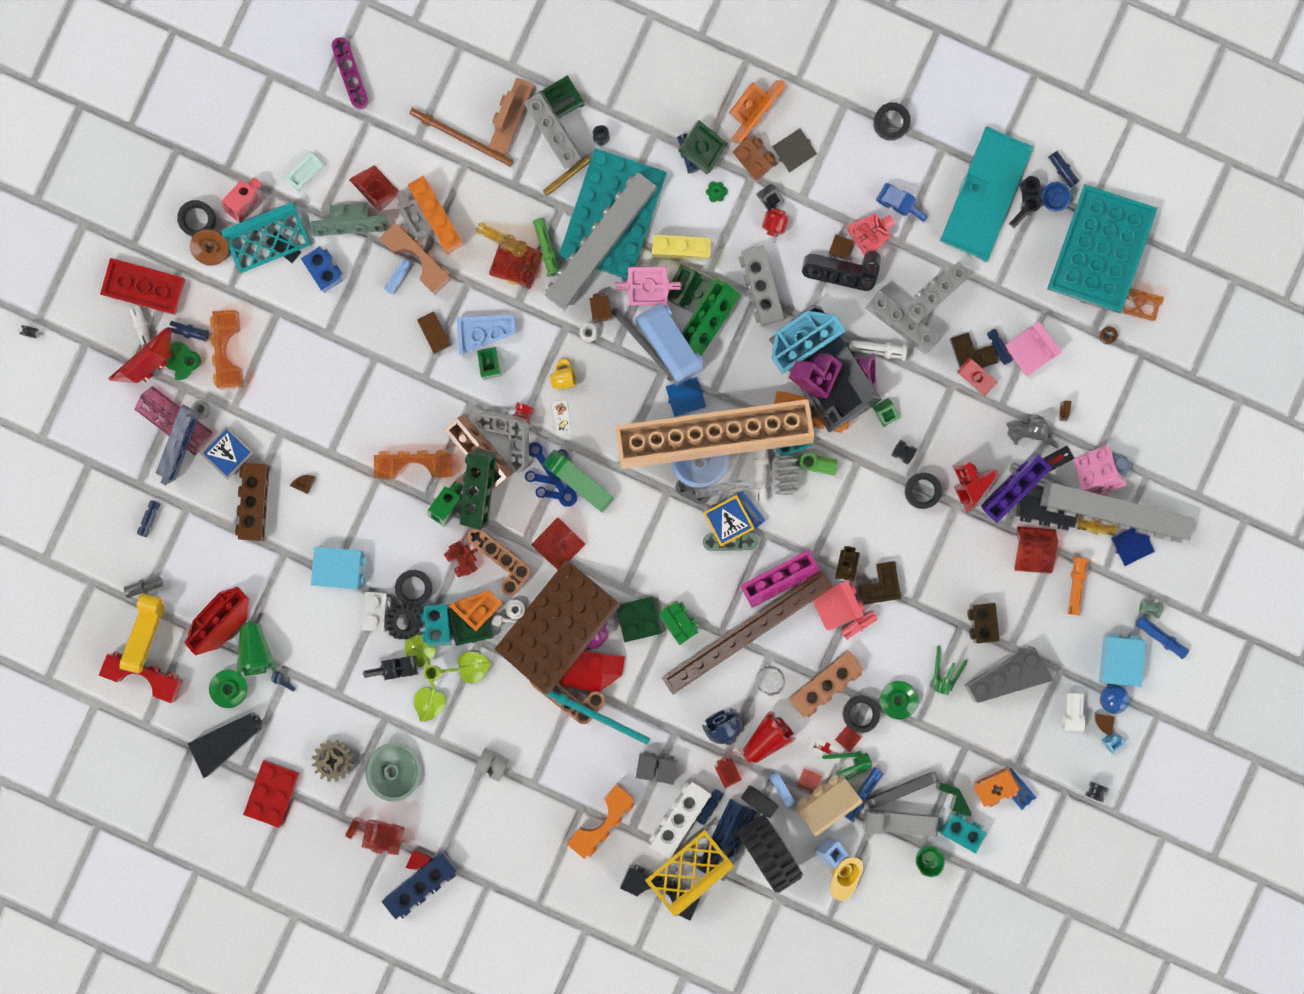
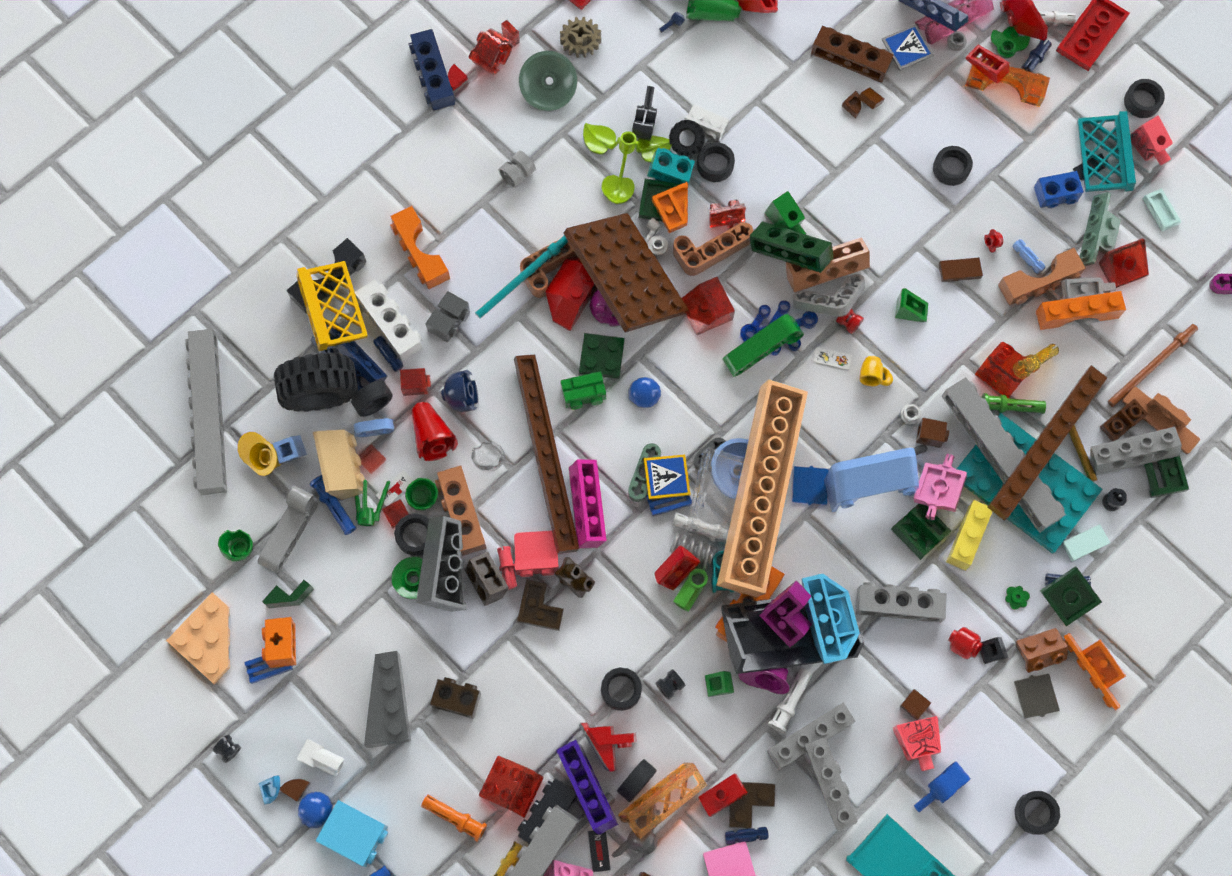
camera: 115 degrees right, 15 degrees down
(206, 254) = (1110, 93): dark orange dish -> none
(217, 362) = (994, 73): none -> red slope
(292, 468) = (871, 98): none -> reddish brown tile
(319, 372) = (947, 178): none -> black tyre
(337, 568) = (761, 103): medium azure brick -> none
(387, 466) = (841, 182): clear orange arch -> none
(395, 312) = (993, 240): none -> red plate
(483, 330) = (947, 314): light blue wing -> none
(524, 148) = (1123, 420): none -> reddish brown slope
(576, 206) = (1047, 443): none -> reddish brown plate
(647, 148) = (1086, 543): none -> light aqua tile
(658, 569) = (644, 392): none -> blue hair
(710, 316) = (896, 537): green brick -> none
(807, 483) = (676, 568): none -> red slope
(817, 268) = (886, 693): black beam -> none
(823, 941) = (207, 412): none -> light grey brick
(825, 723) = (421, 494): none -> green hair
(877, 638) = (486, 578): none -> dark brown brick
(883, 678) = (442, 566): none -> dark grey wedge
(902, 790) = (320, 546): dark grey beam -> none
(945, 685) = (409, 631): green plant -> none
(961, 835) = (245, 585): teal brick -> none
(994, 449) = (636, 780): none -> black tyre
(1000, 429) = (658, 792): none -> clear orange fence
(1014, 851) = (205, 638): none -> light nougat plate

